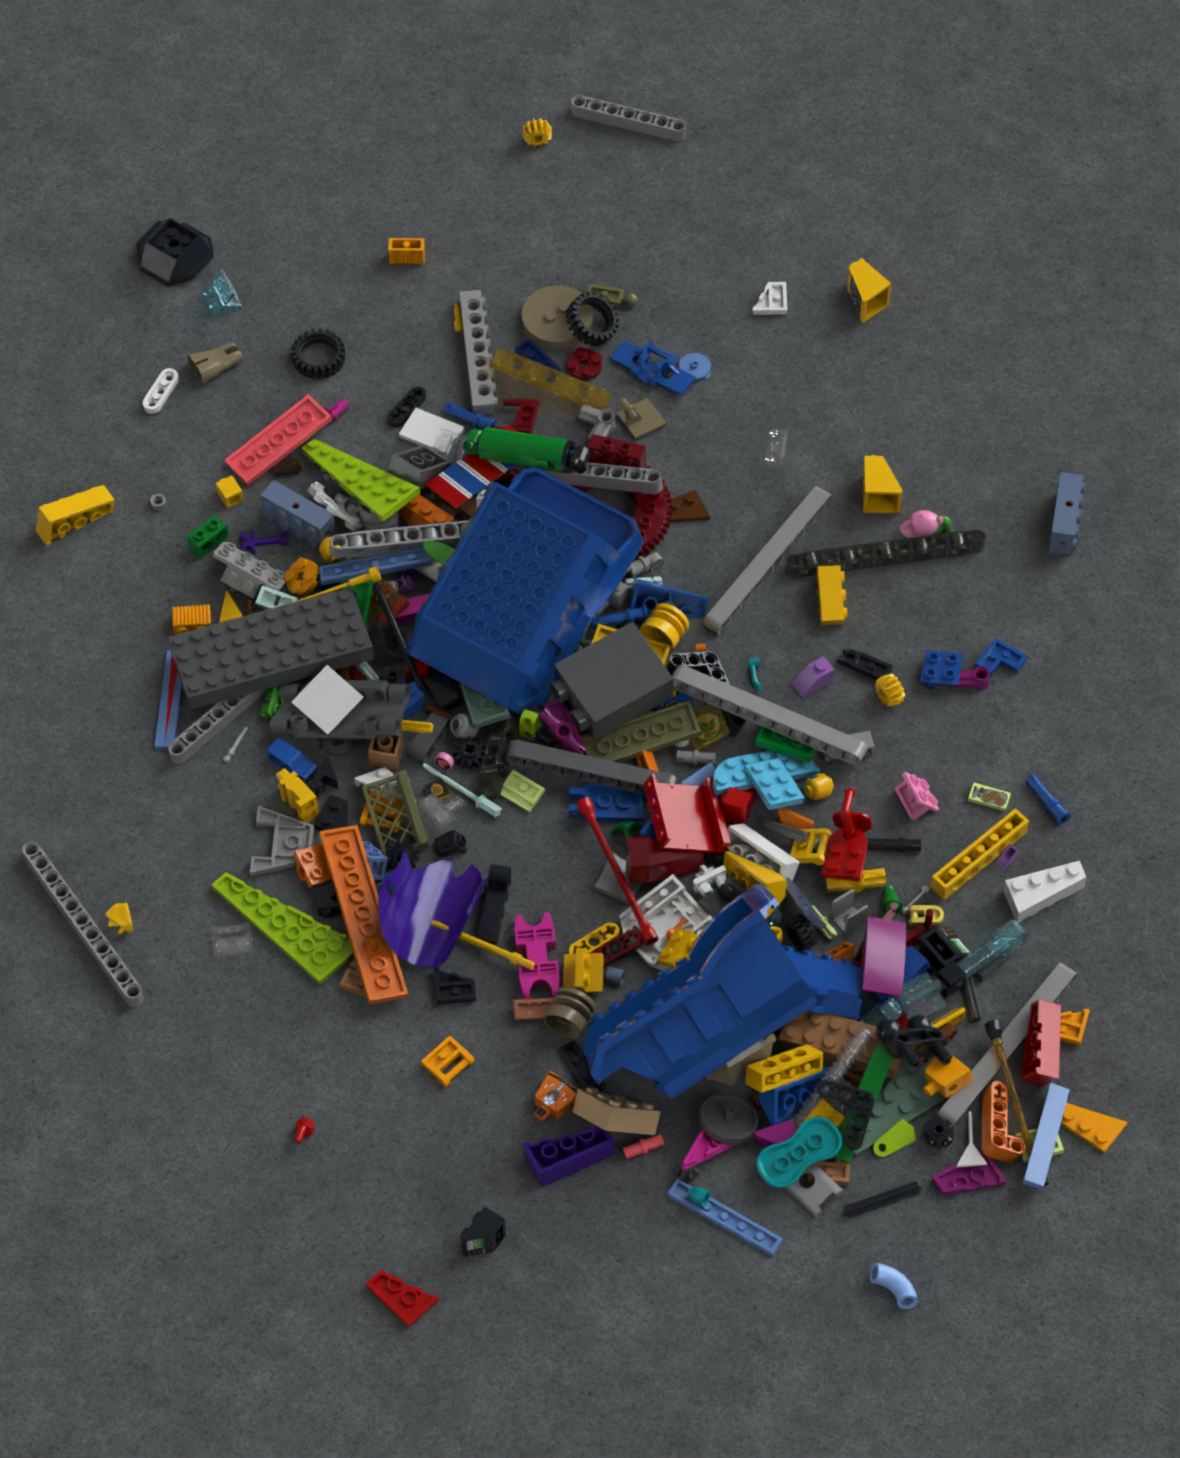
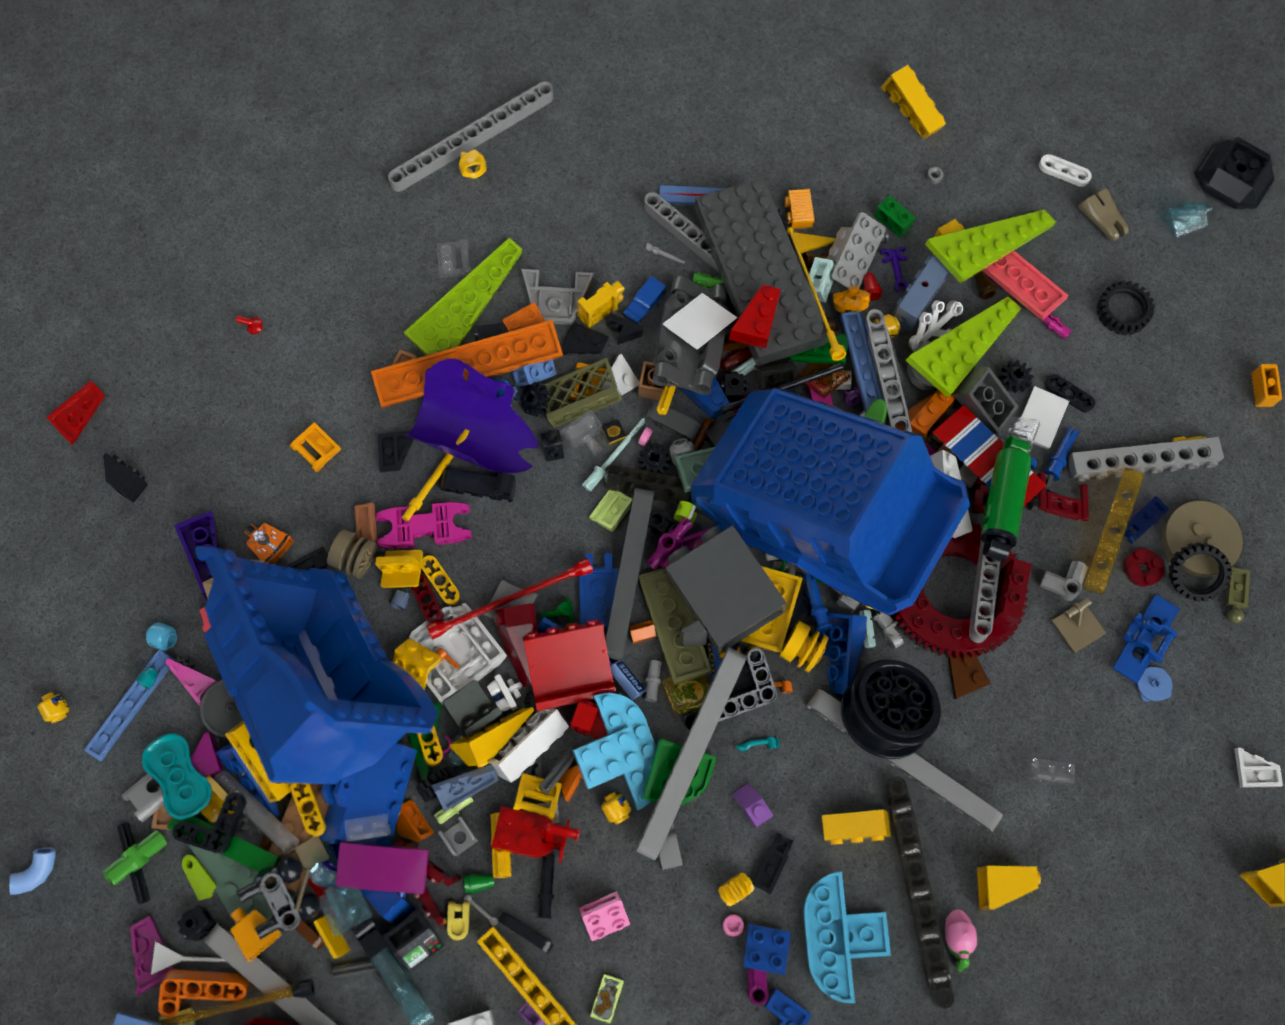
camera: 85 degrees right, 15 degrees up
(254, 461) = (978, 247): none -> lime wing
(284, 561) = (872, 286): none -> red cone
(335, 637) = (756, 320): none -> red wedge
(387, 446) = (1018, 381): none -> black gear
(654, 1189) = (161, 636): none -> medium azure head
(657, 706) = (694, 635): none -> dark grey slope
(726, 556) = (883, 734): none -> black wheel
(730, 1284) = (53, 707): none -> yellow head
(812, 1028) = (308, 790): none -> yellow beam
(849, 965) = (367, 827): none -> clear bracket
(872, 1019) = (309, 854): none -> dark tan piece
(879, 1188) = (134, 858): none -> bright green piece
(921, 698) = (733, 925): none -> bright pink tile
(928, 614) = (838, 937): none -> medium azure plate
(936, 856) = (525, 932): none -> black beam

